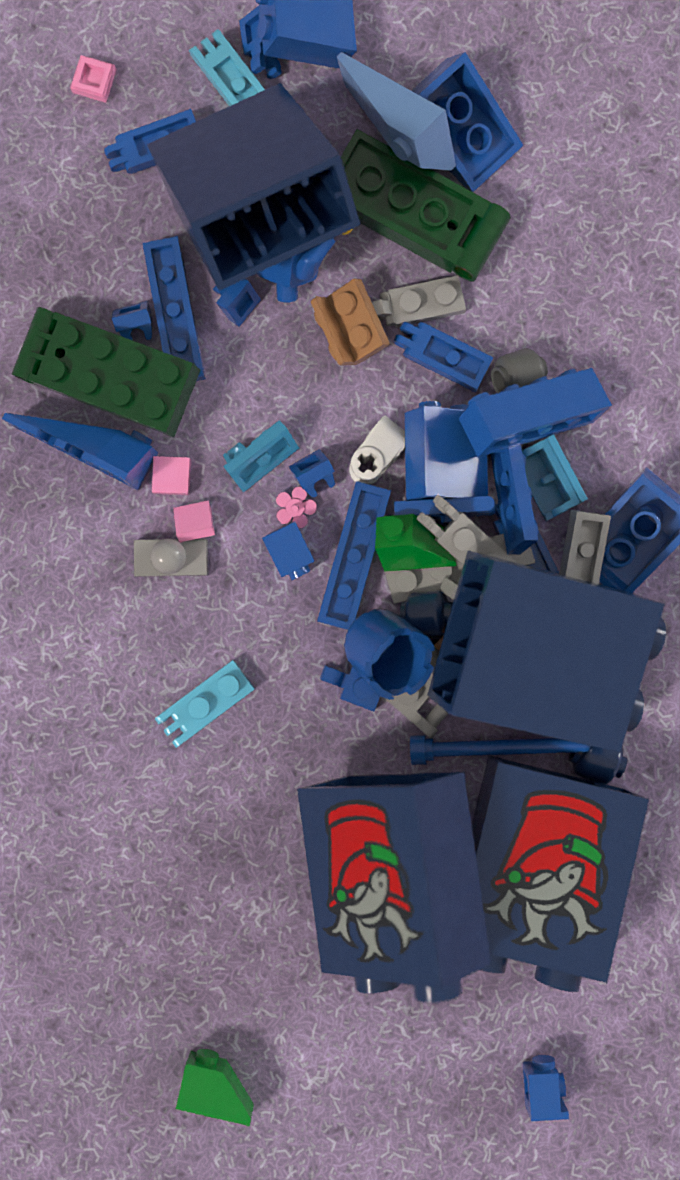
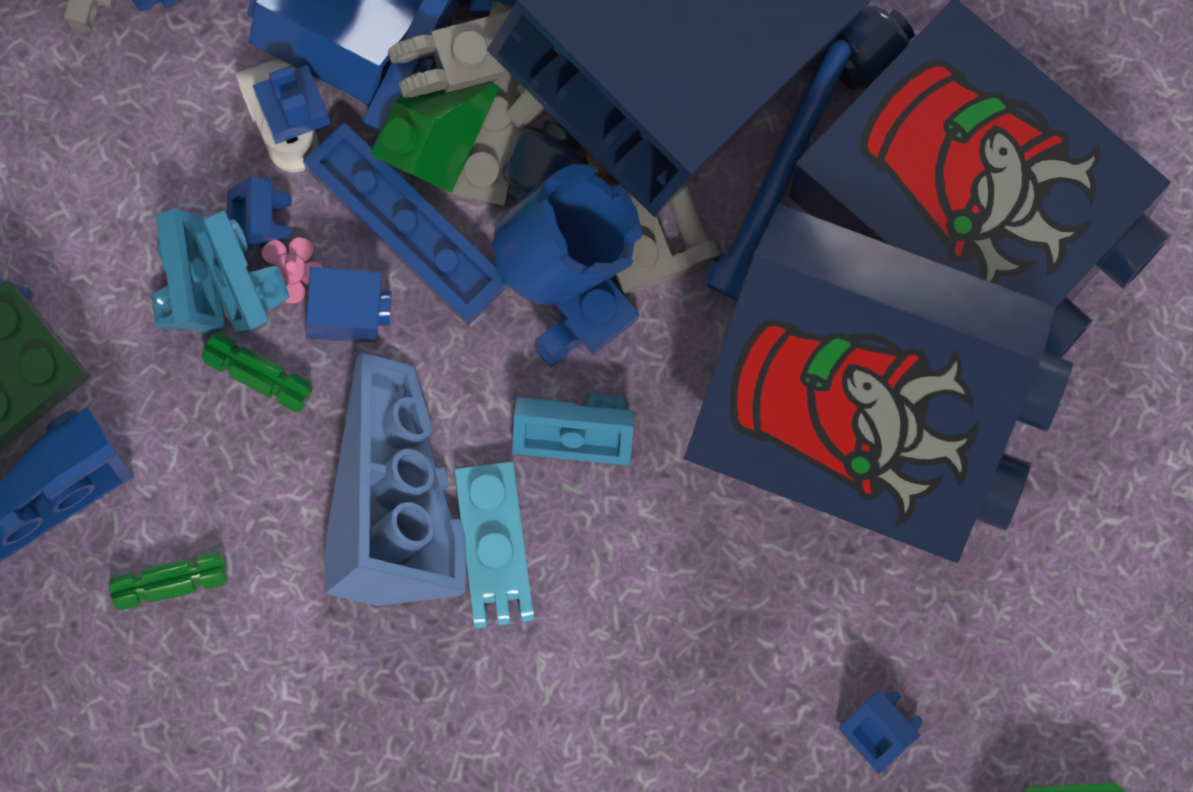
camera: 60 degrees left, 10 degrees down
(90, 542) = (168, 581): none -> green axle
(170, 558) = (257, 479): light grey tile -> none
(171, 475) = (141, 415): bright pink tile -> none
(191, 638) = (389, 510): none -> medium blue wedge
(193, 521) = (226, 416): bright pink tile -> none
(214, 970) = (881, 730): none -> blue tile
(228, 523) = (257, 372): none -> green axle
(265, 493) = (243, 293): none -> dark azure hinge
(293, 725) = (575, 432): none -> dark azure hinge
(350, 324) = (79, 51): medium nougat bracket -> none
(380, 457) = (291, 103): none -> blue tile

